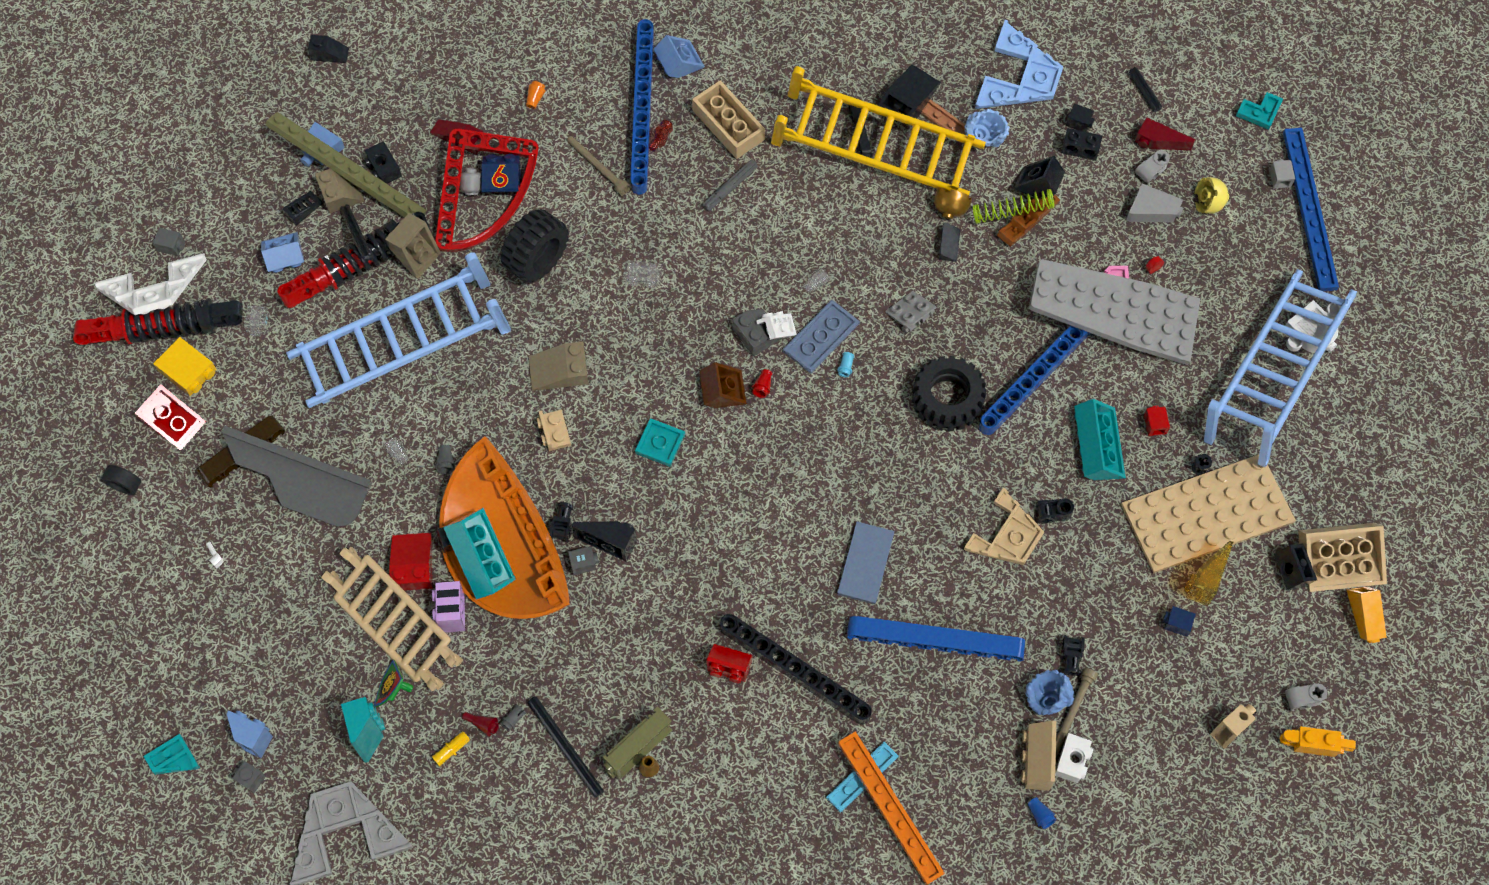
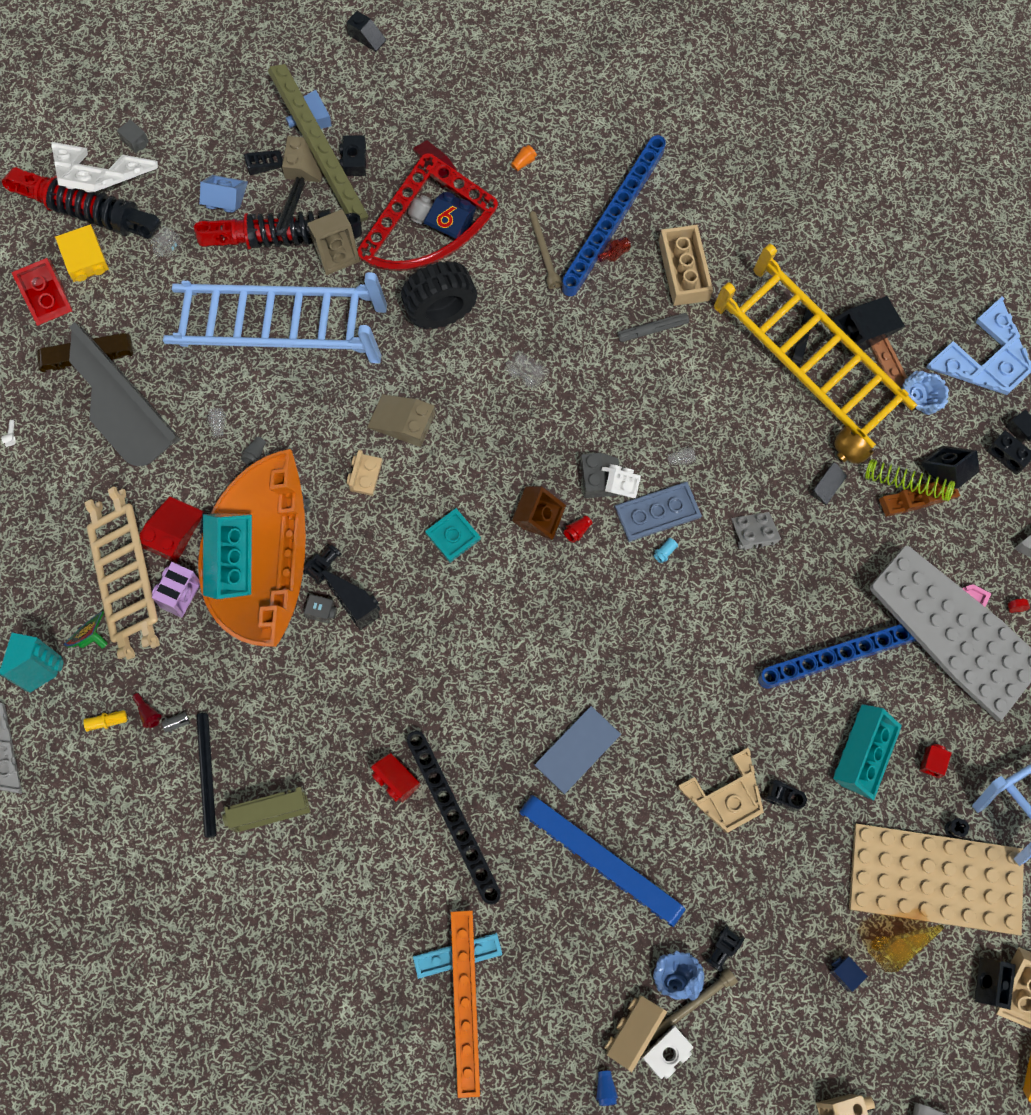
camera: 25 degrees right, 5 degrees up
(649, 771) = (273, 837): pearl gold cone -> none
(678, 56) = (672, 185): medium blue slope -> none
(952, 371) = (764, 611): black tyre -> none

